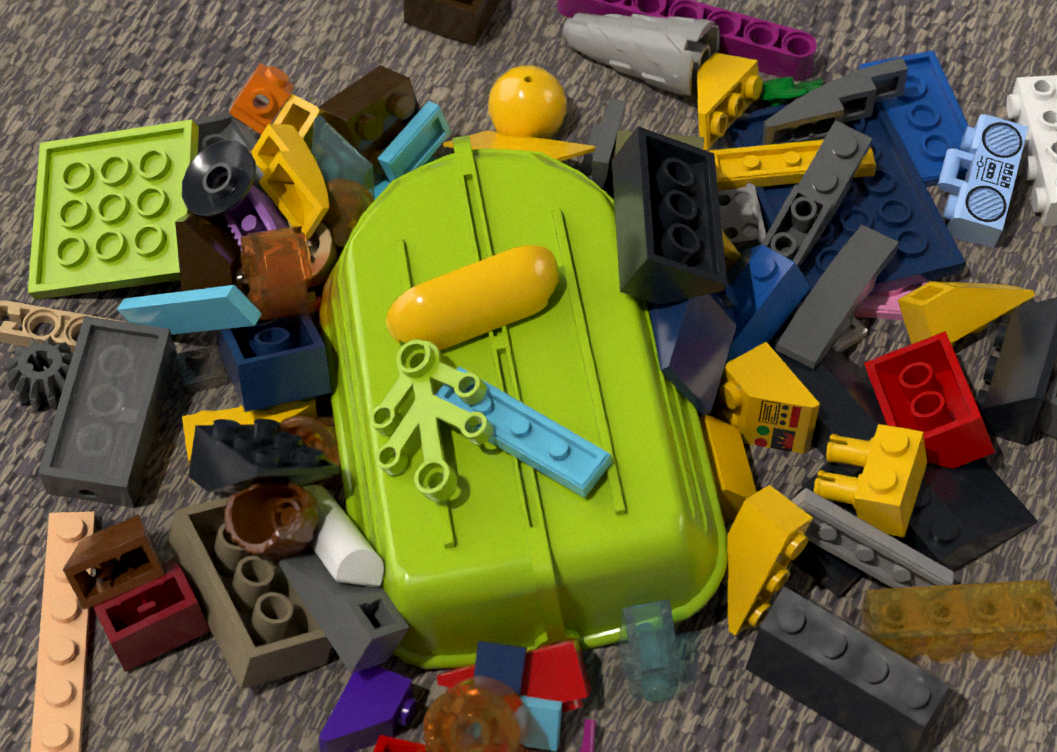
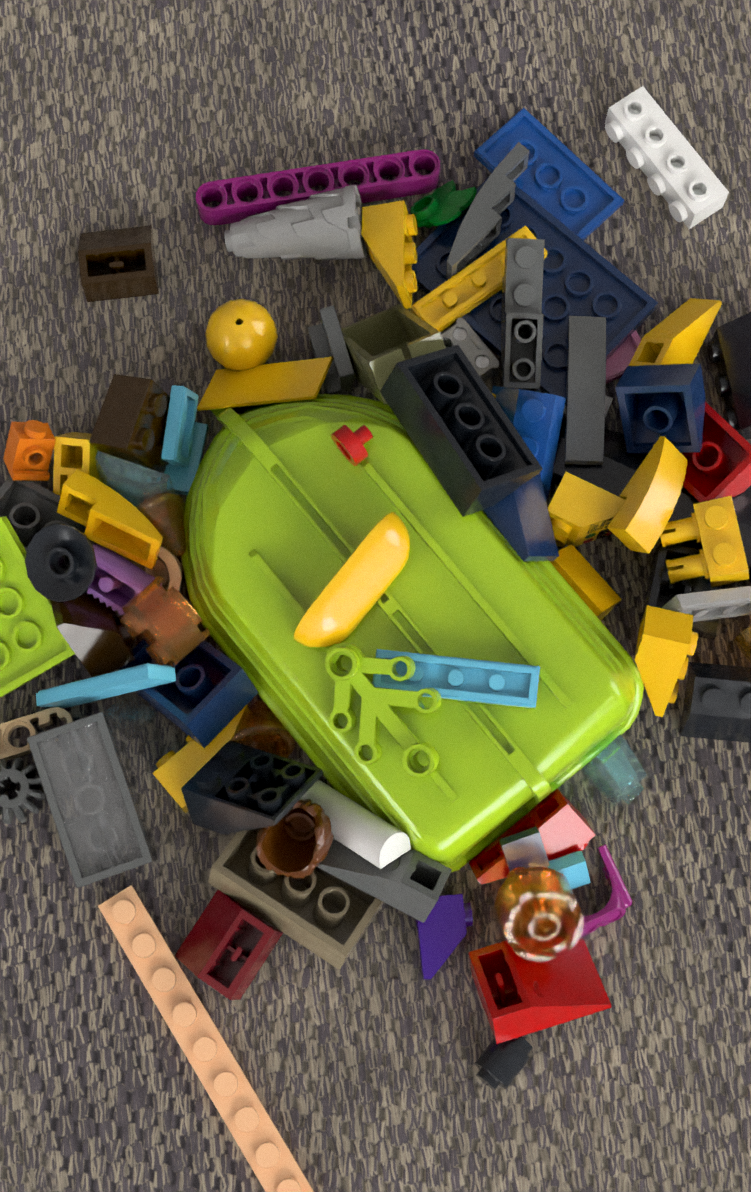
camera: 30 degrees left, 20 degrees up
(119, 561) = (183, 926): reddish brown torso -> none
(552, 181) = (352, 443): none -> red tile
(840, 404) = (650, 497): none -> yellow slope
(905, 340) = (662, 403): none -> dark blue slope
(992, 166) = (635, 214): light blue piece -> none

